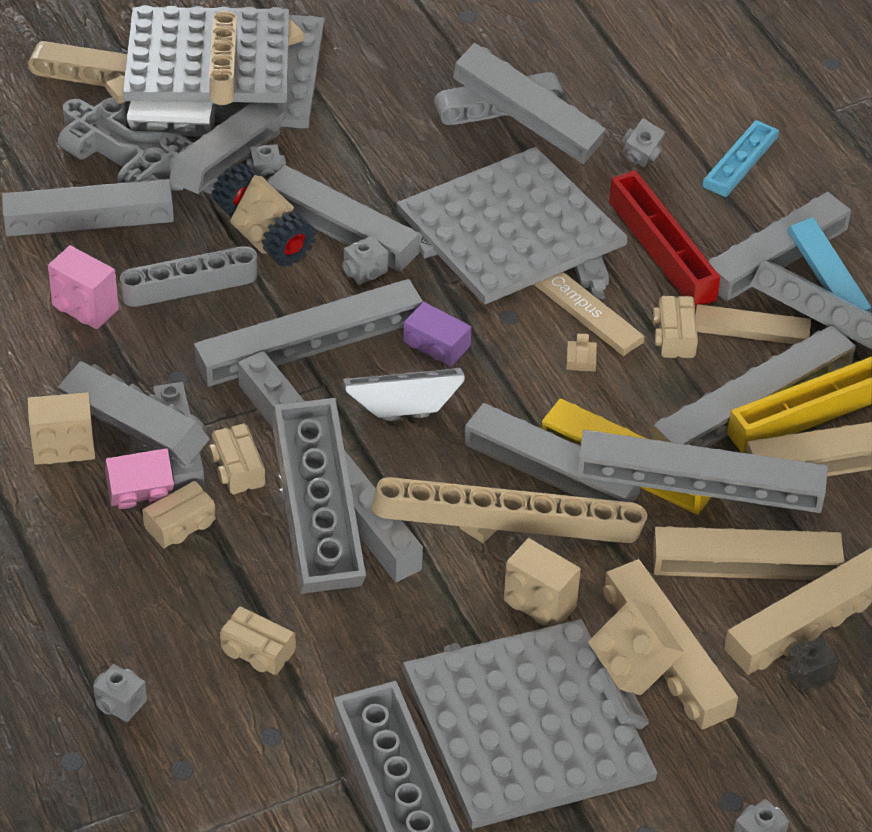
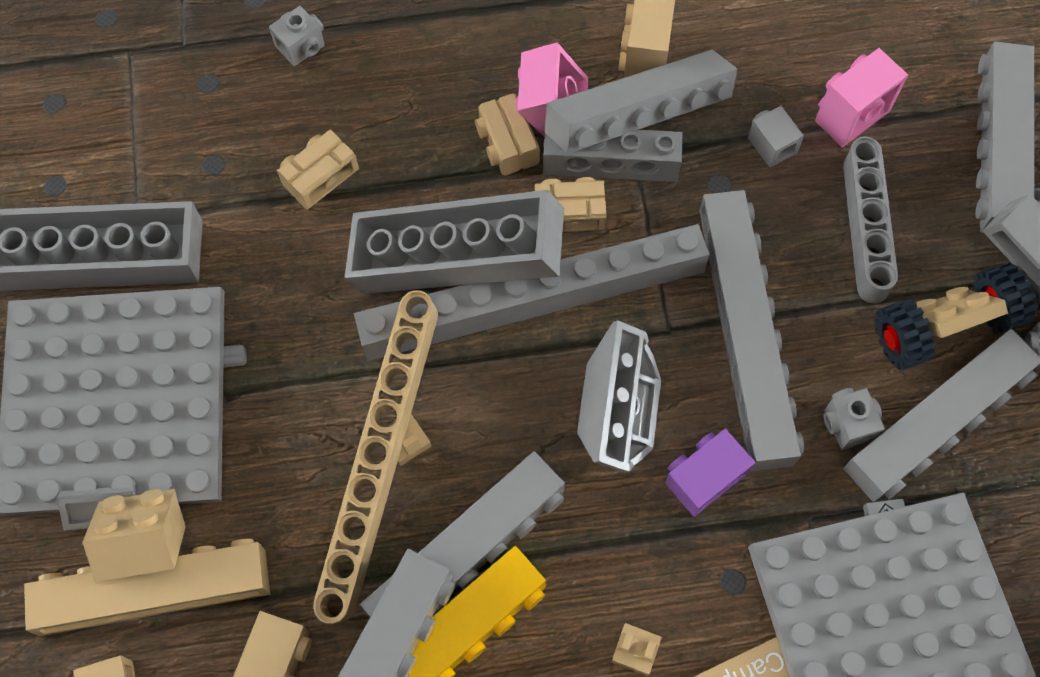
camera: 110 degrees right, 20 degrees up
(128, 342) = (775, 136): none -> light grey brick
(541, 584) = (266, 460): tan brick -> none

